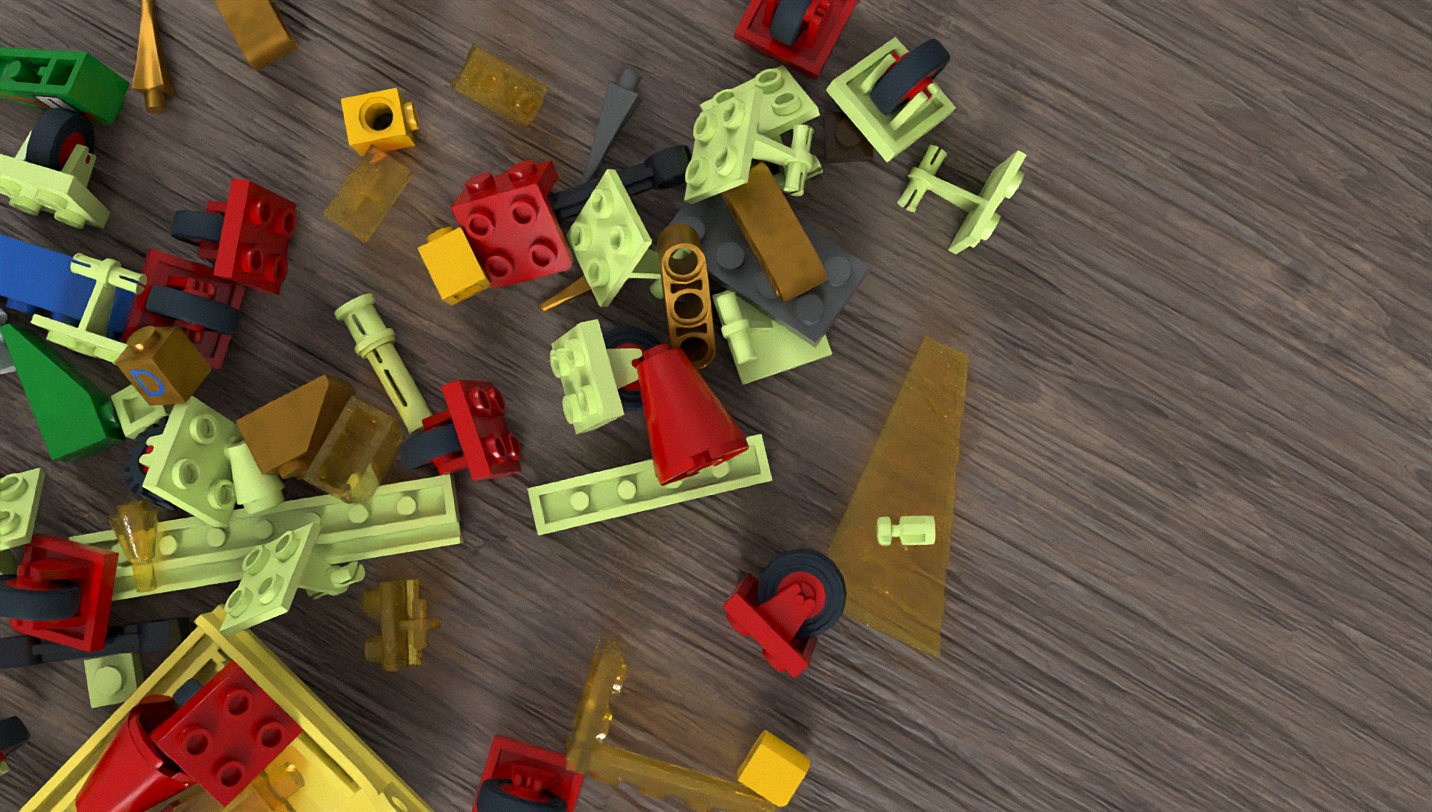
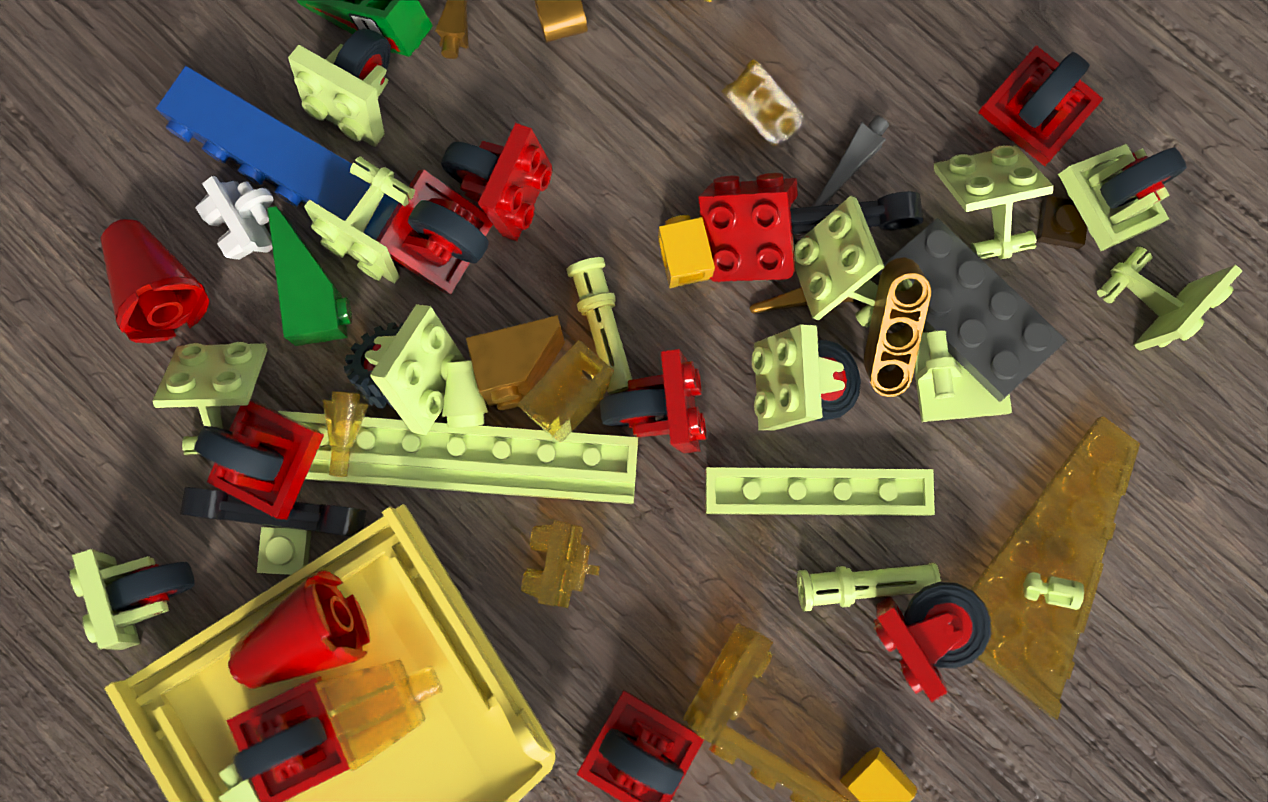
camera: 10 degrees right, 5 degrees down
(135, 412) = (373, 309): yellowish green plate -> none
(163, 365) = (412, 272): pearl gold brick -> none
(225, 732) = (391, 620): red plate -> none
(275, 574) = (471, 491): yellowish green plate -> none
(363, 110) = (638, 94): yellow brick -> none
(368, 193) = (623, 169): clear yellow hips -> none
(684, 417) = (874, 435): red cone -> none
(698, 575) = (846, 586): none -> yellowish green pin
(729, 141) = (969, 197): yellowish green plate -> none
(774, 234) = (988, 286): pearl gold beam -> none

